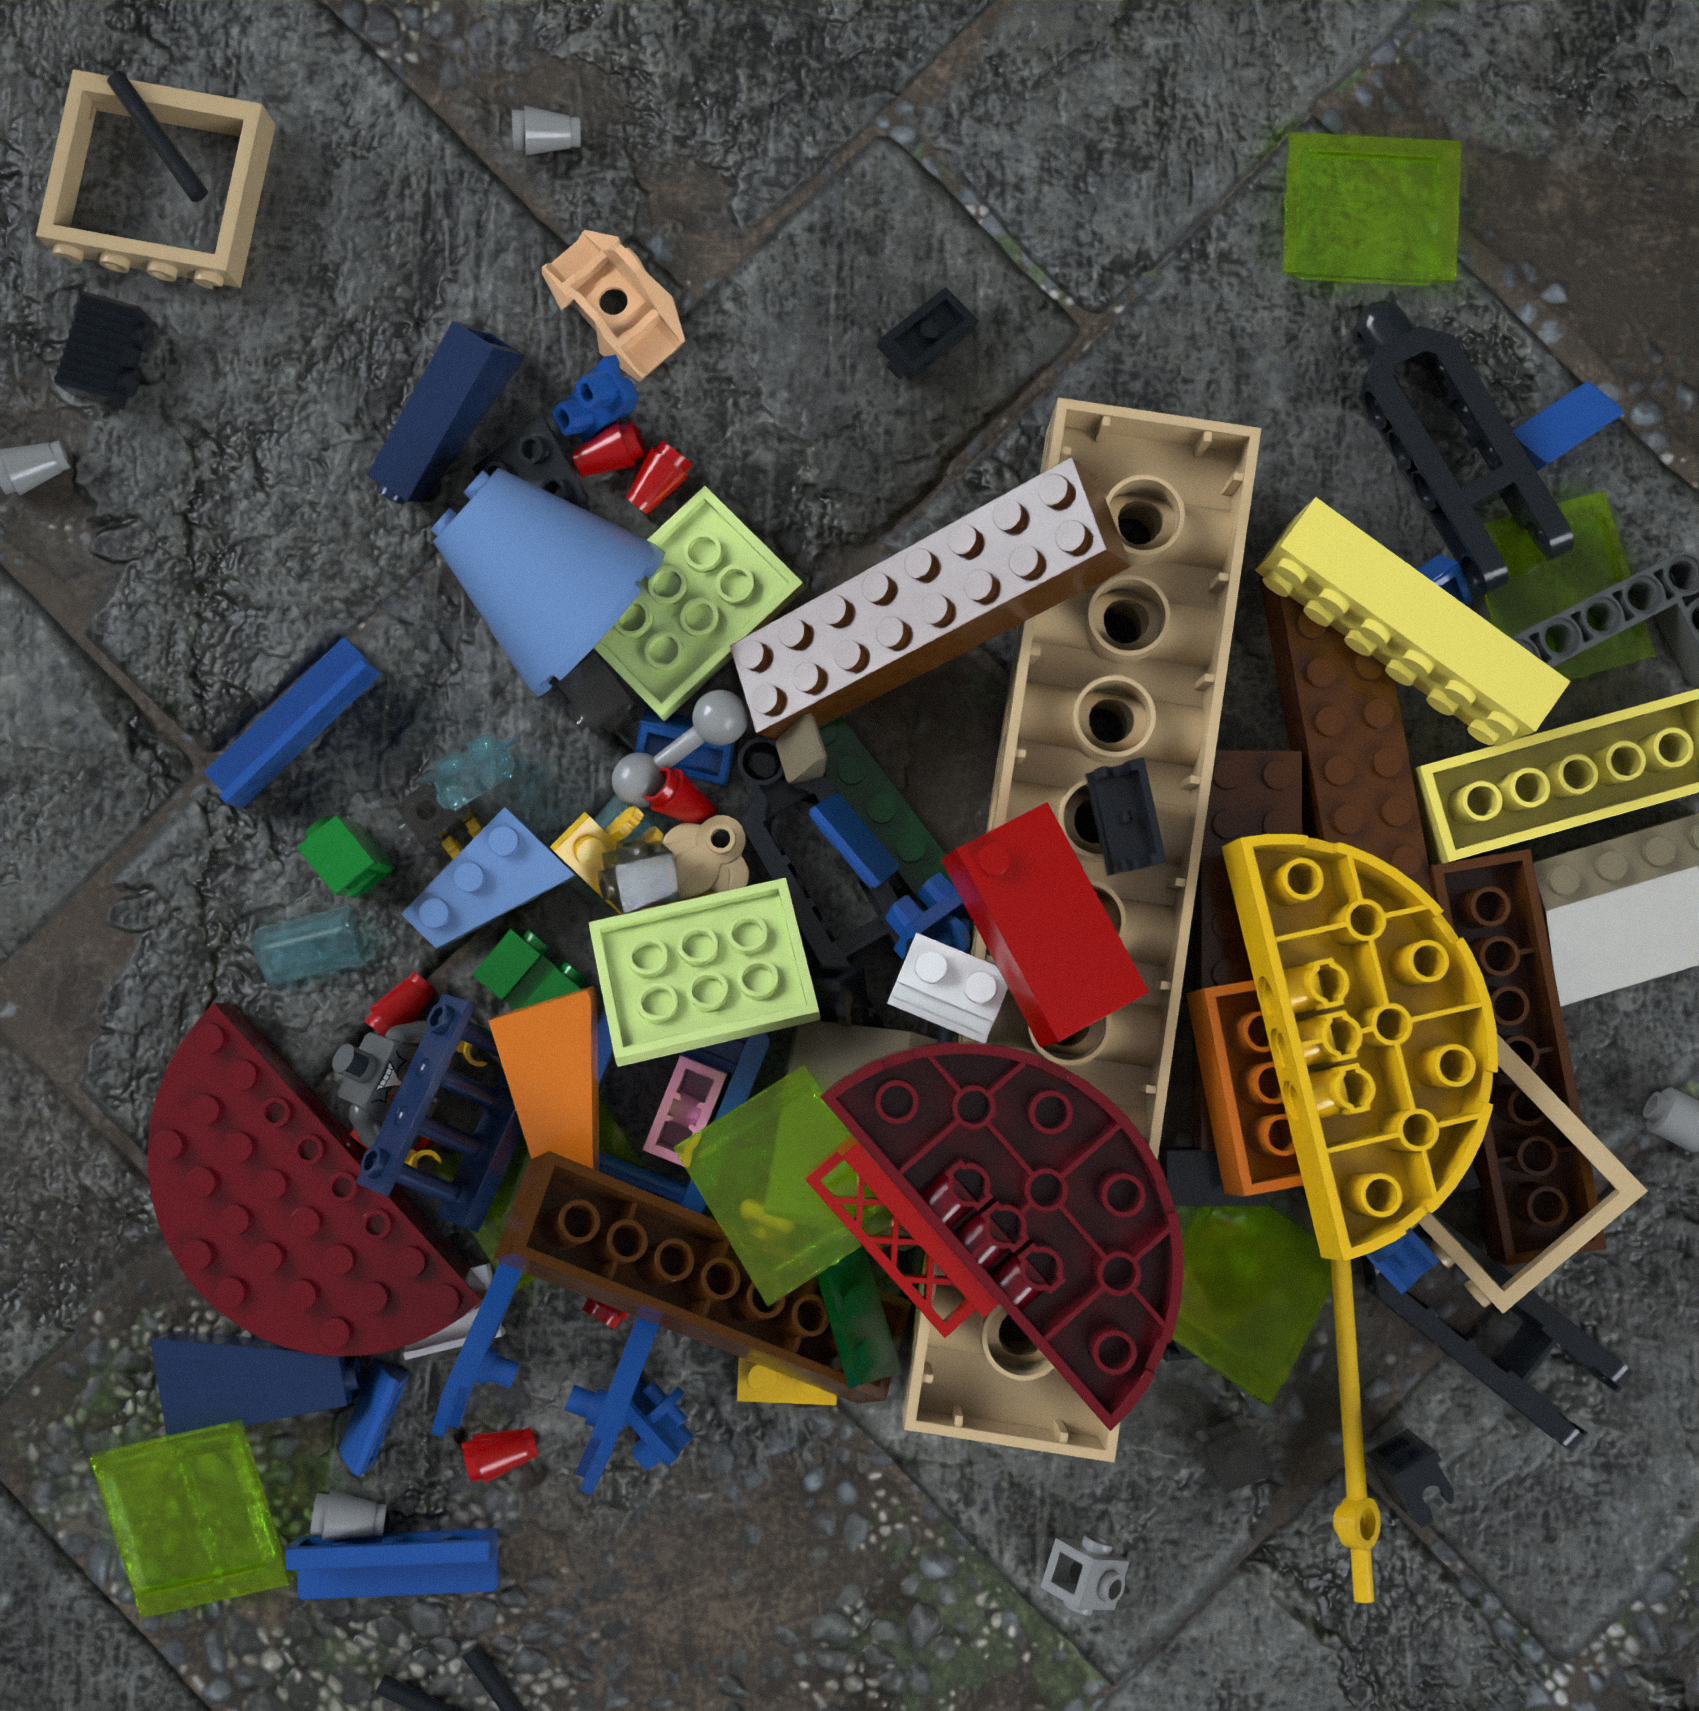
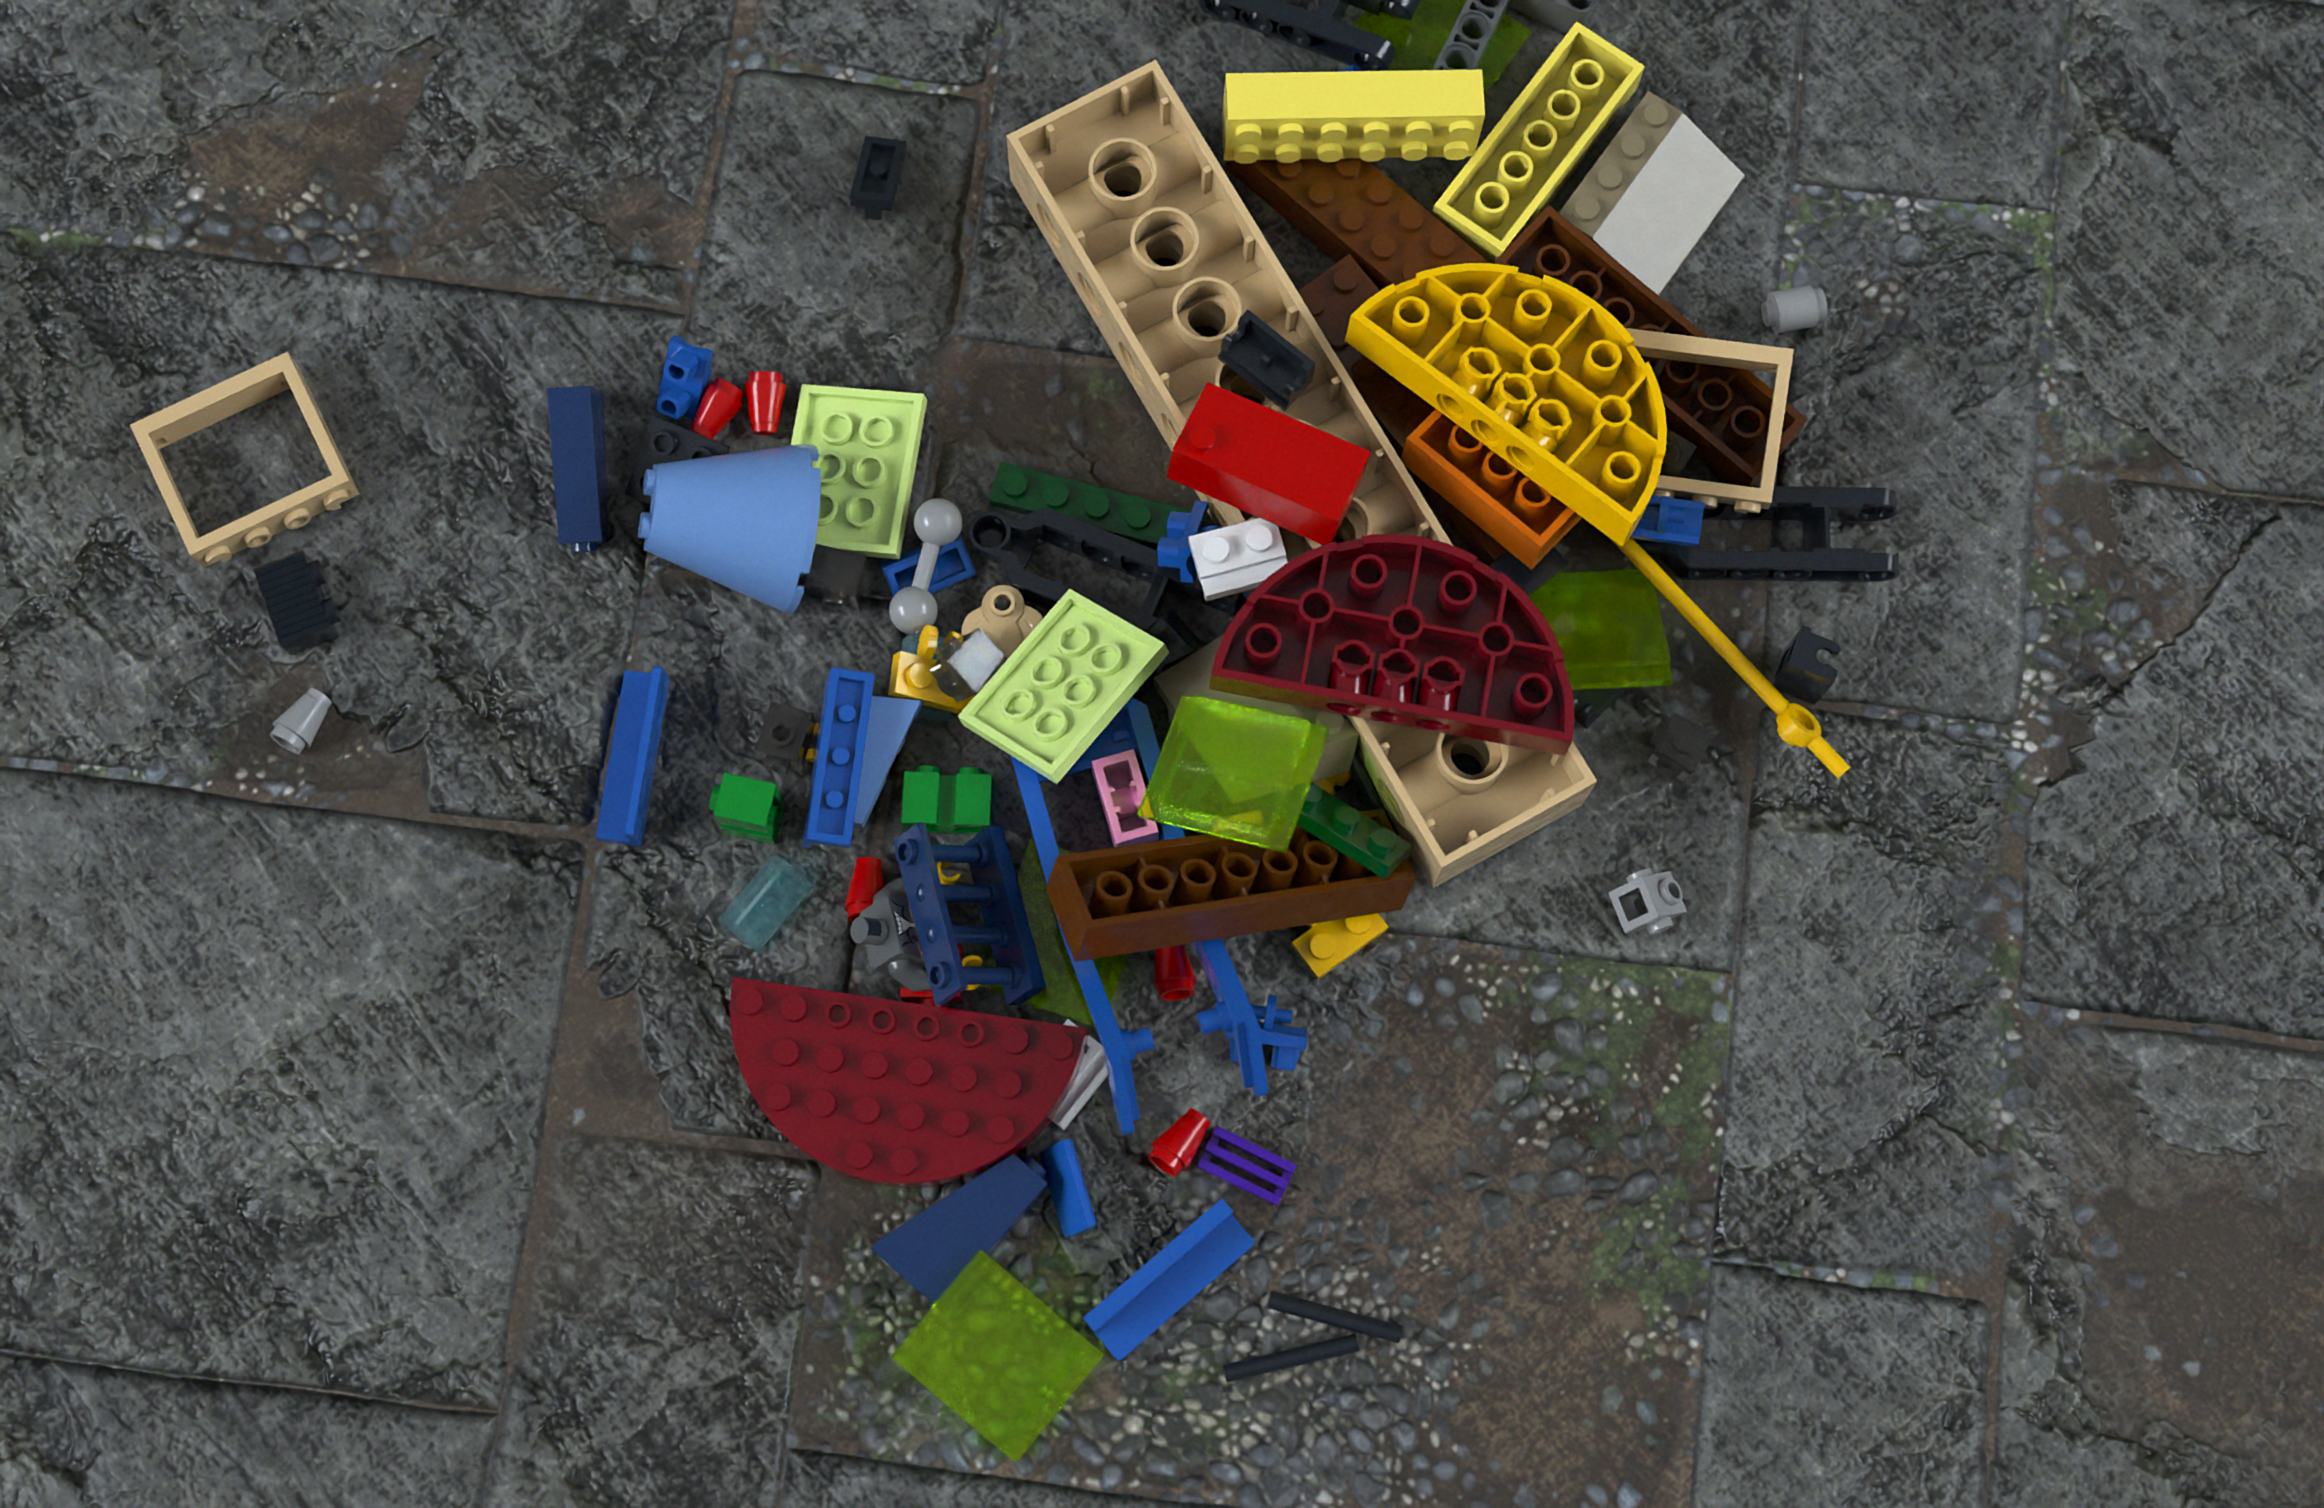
camera: 40 degrees left, 10 degrees down
(157, 136) = (229, 424): black bar -> none
(346, 1517) = (1107, 1271): light grey cone -> none
(456, 772) = (791, 686): clear light blue hinge -> none
(456, 876) = (838, 758): none -> blue panel
(543, 131) = (500, 233): light grey cone -> none
(553, 1073) = (1009, 825): orange slope -> none
(559, 1556) = (1254, 1150): none -> dark purple tile
(648, 325) = (610, 290): light nougat piece -> none
(681, 799) = (952, 599): red cone -> none
(802, 751) = (1013, 499): dark tan slope -> none
(854, 841) = (1096, 534): blue slope -> none
(917, 1226) = (1342, 718): red fence -> none
(932, 601) = (1023, 333): brick -> none

